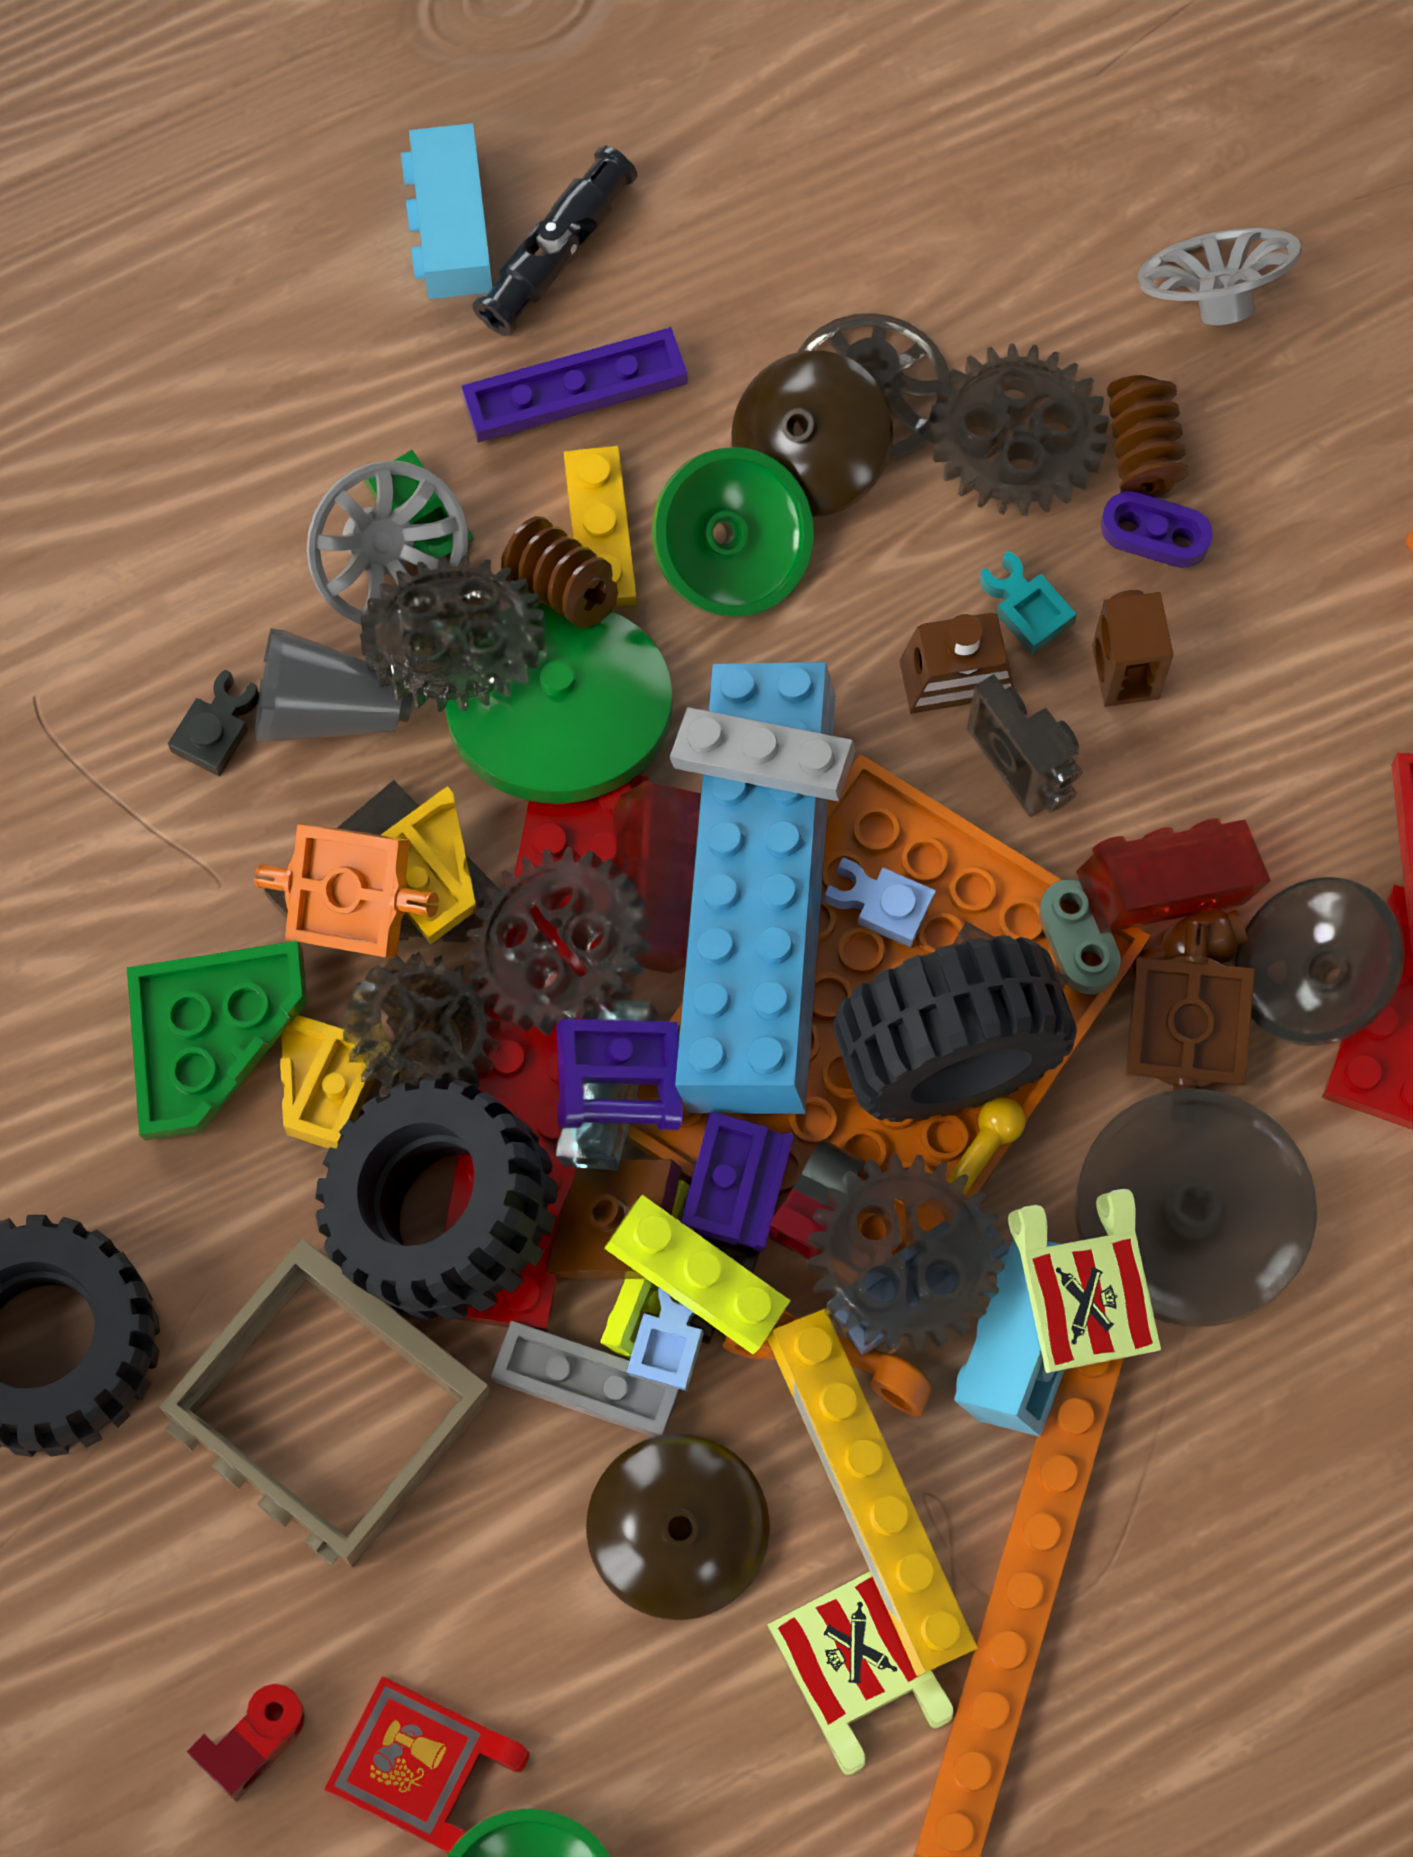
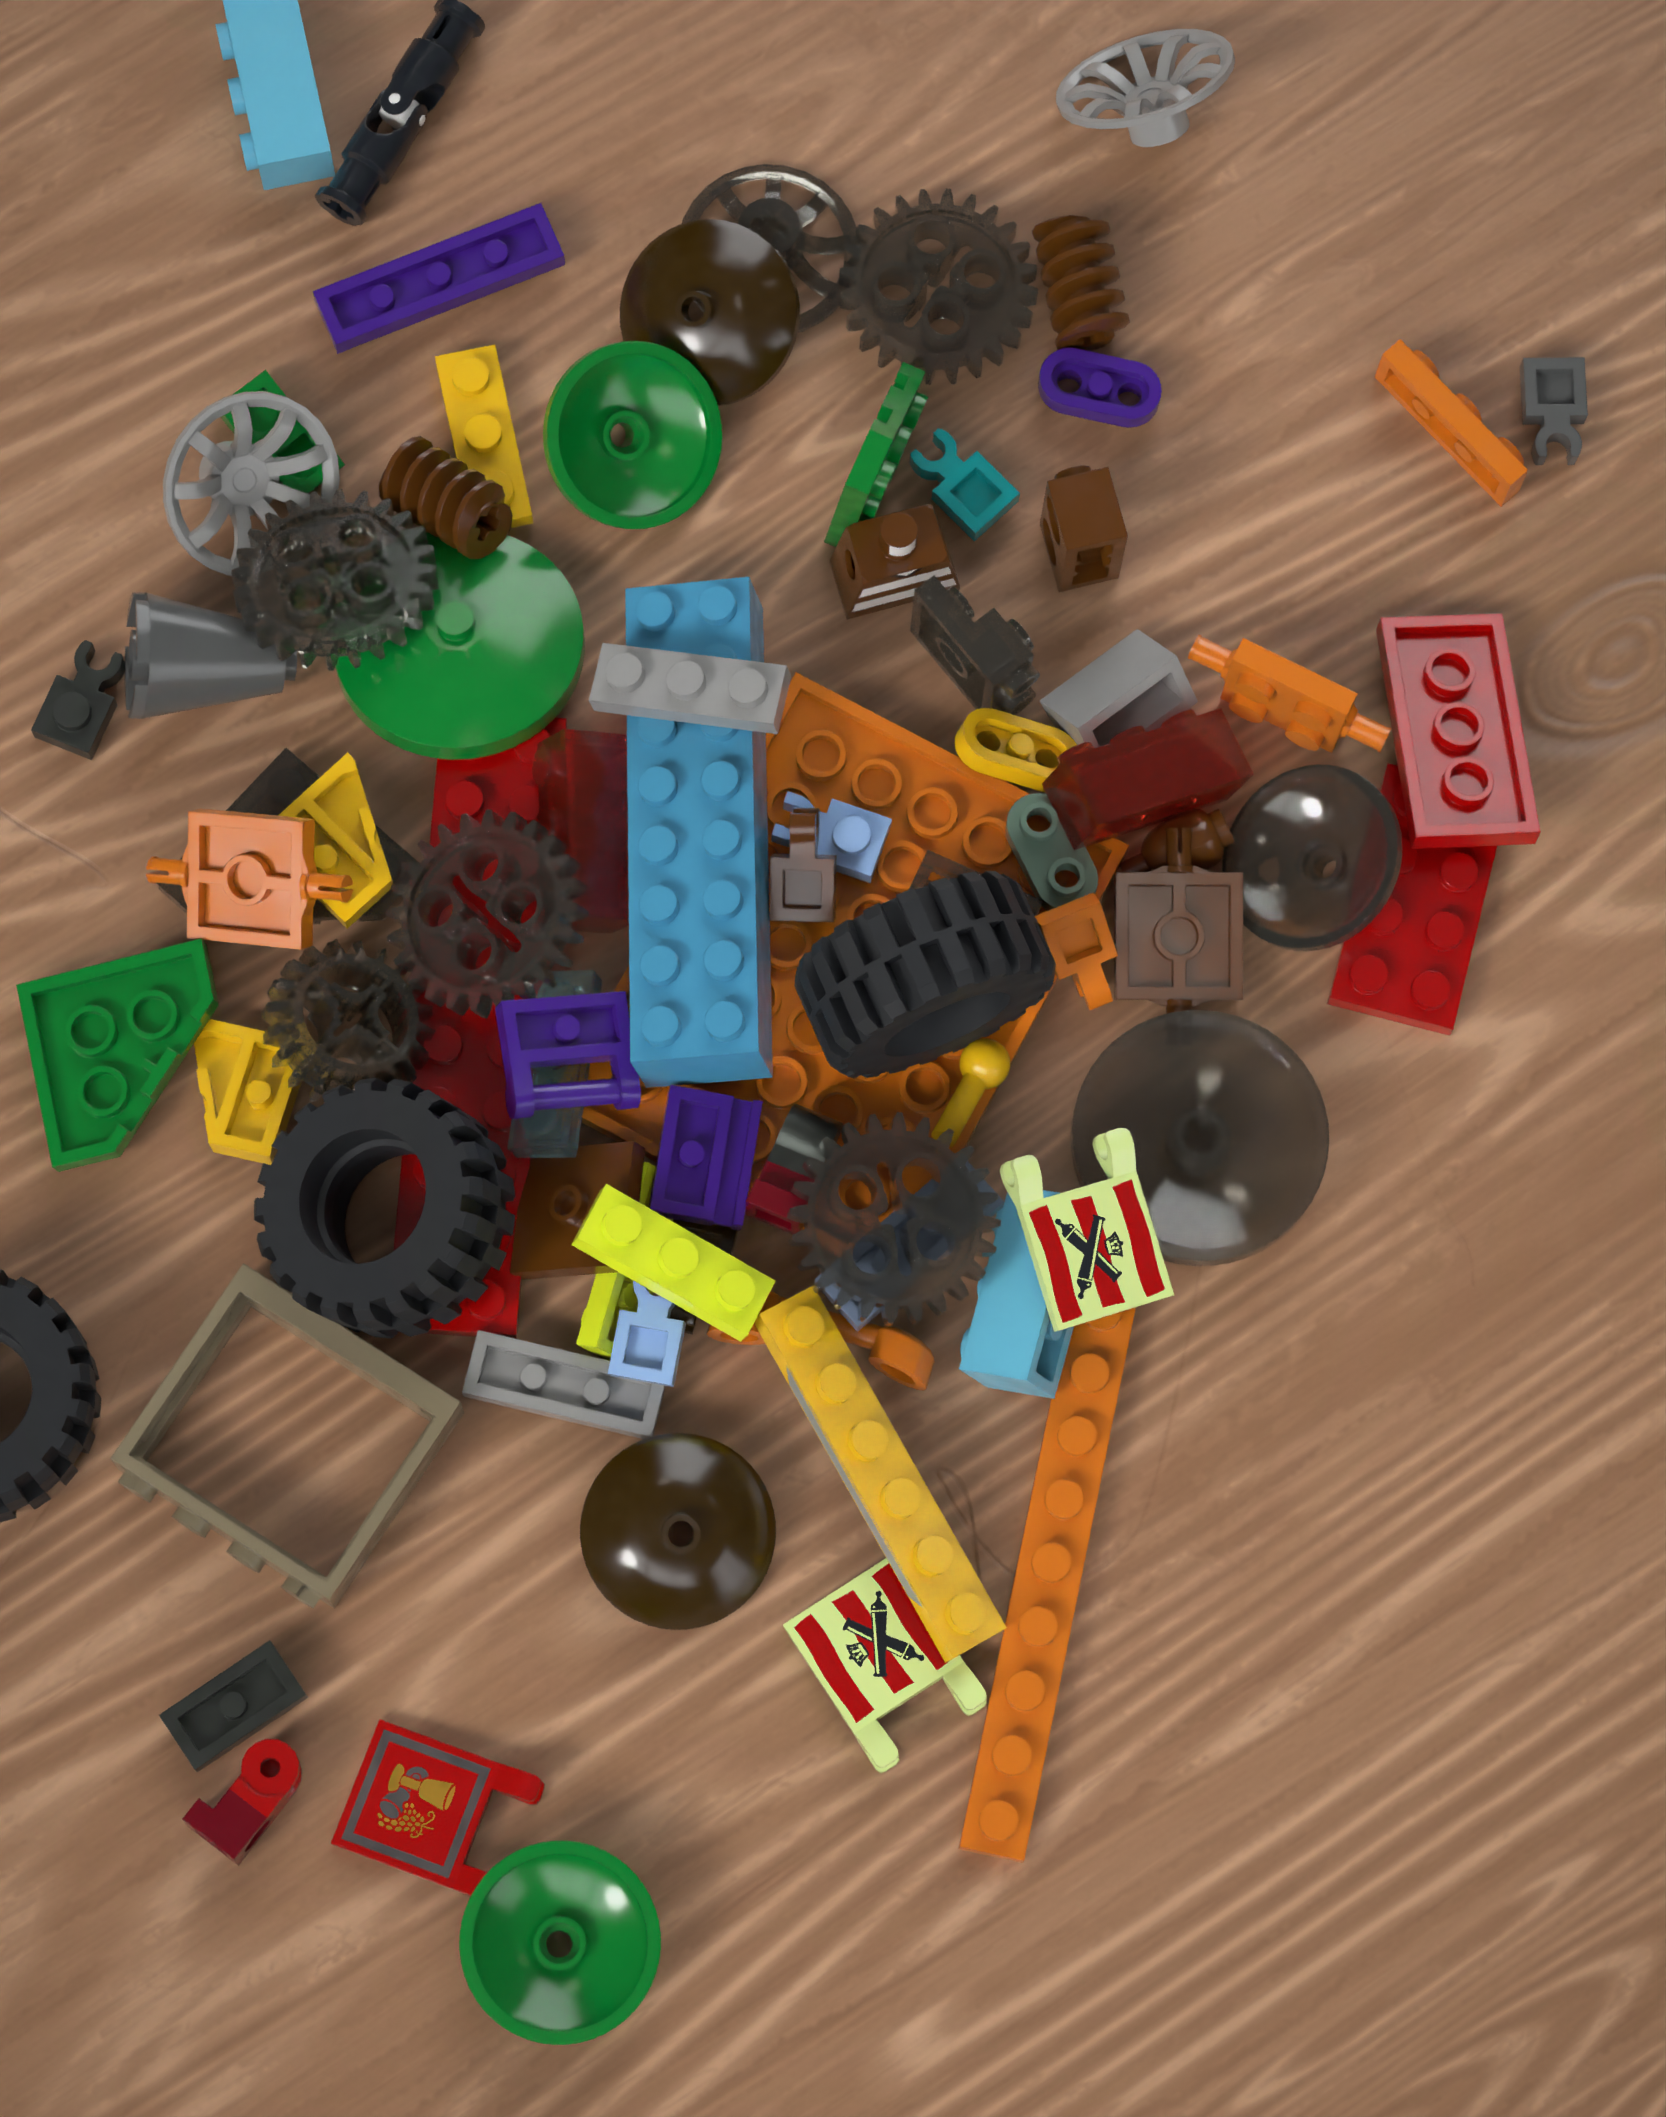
camera: 10 degrees left, 5 degrees up
(247, 1650) = (233, 1706): none -> pearl dark grey plate
(849, 938) = (803, 880): none -> plate
(953, 565) = (880, 452): none -> green plate
(1049, 837) = (1012, 746): none -> yellow plate
(1100, 1019) = (1079, 944): none -> orange plate
(1155, 794) = (1119, 690): none -> light grey brick
(1307, 813) = (1287, 695): none -> orange plate

